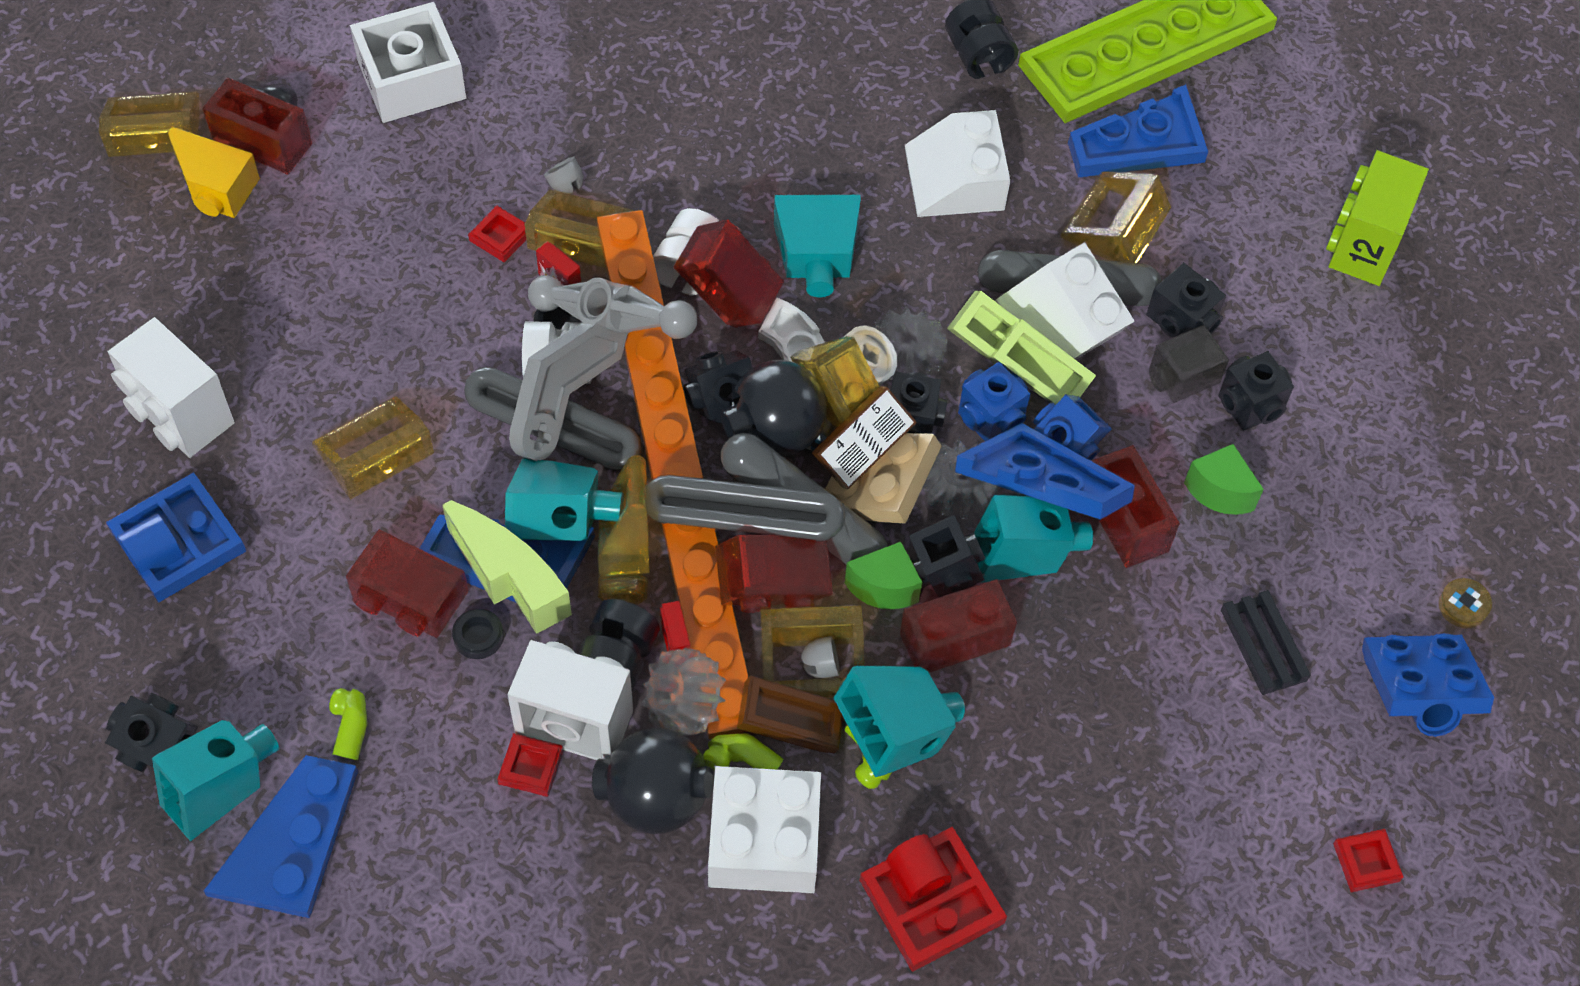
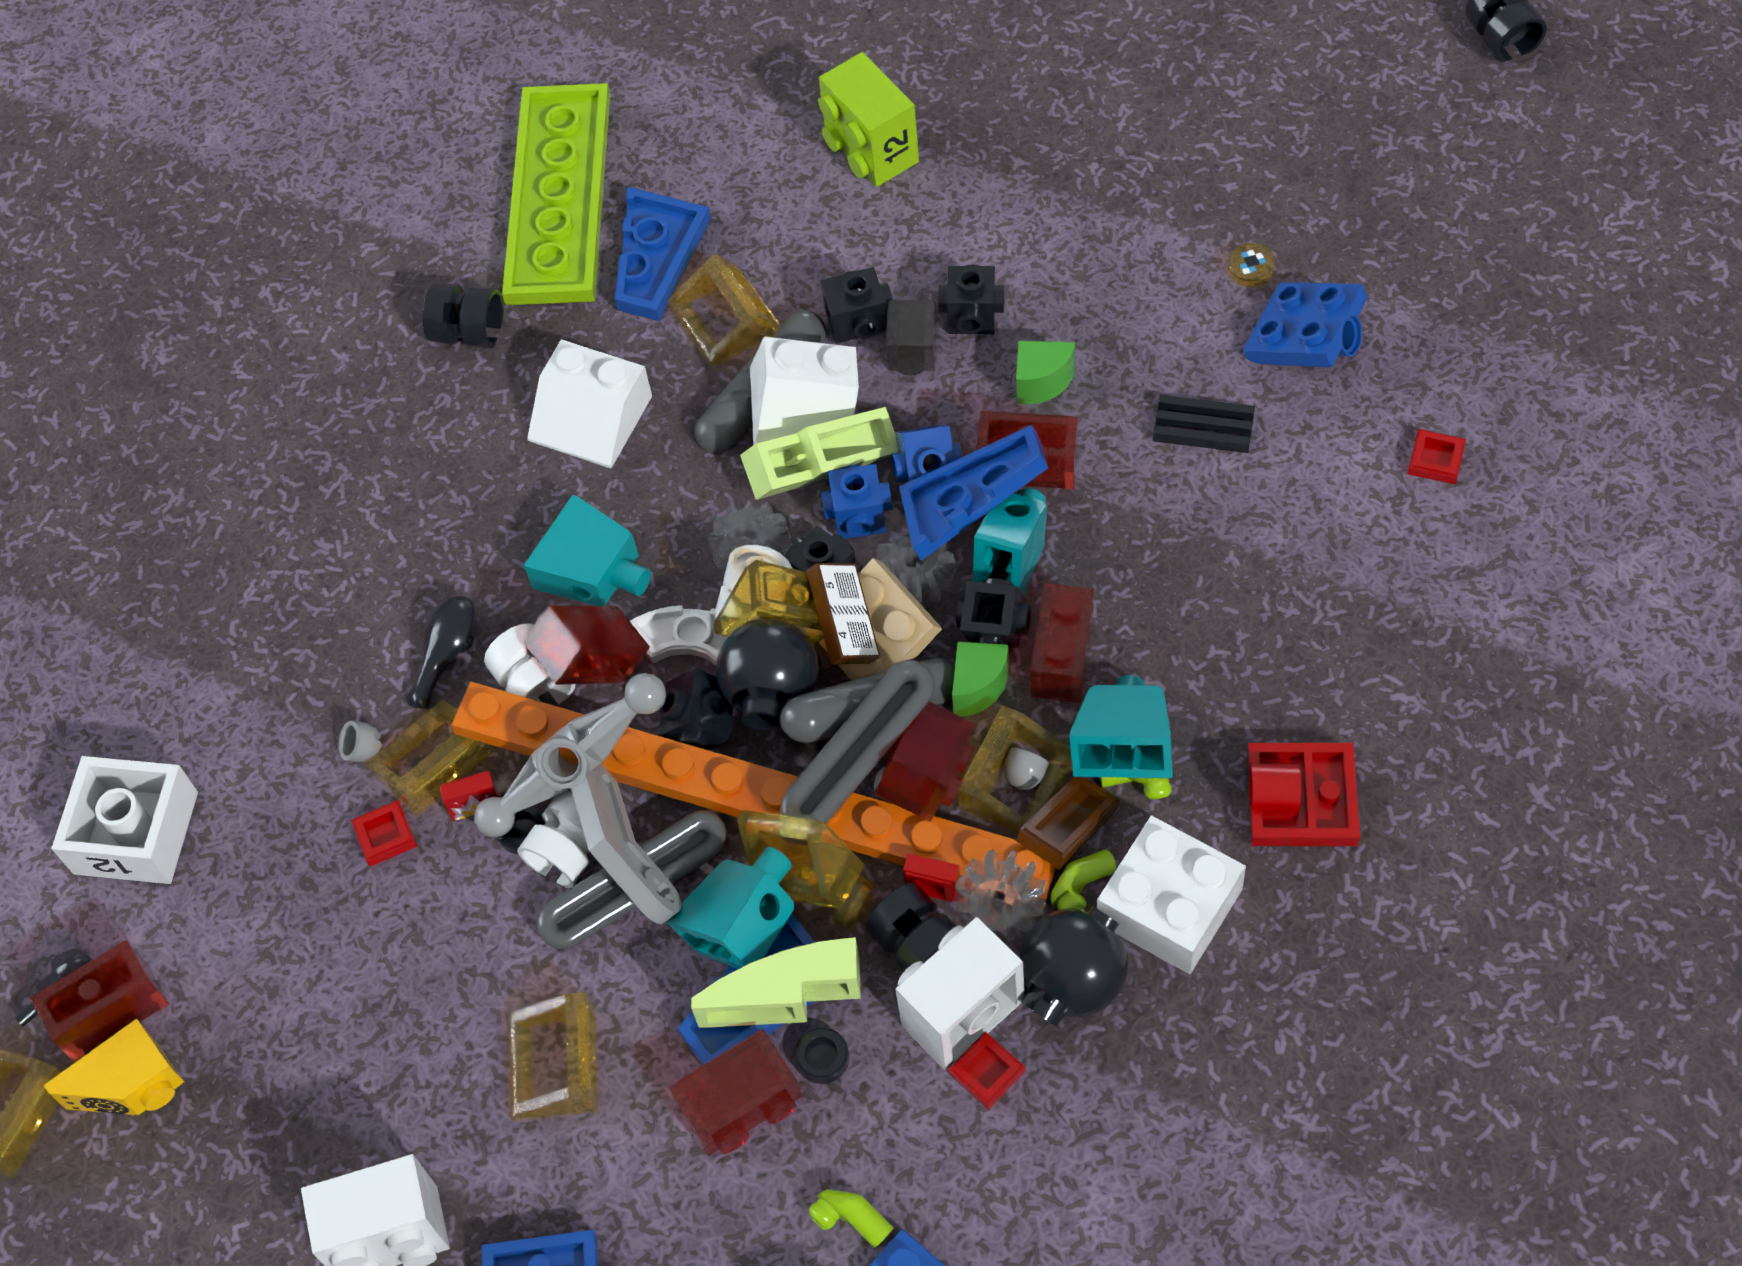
camera: 50 degrees left, 0 degrees up
(685, 180) = (443, 641): none -> black piece

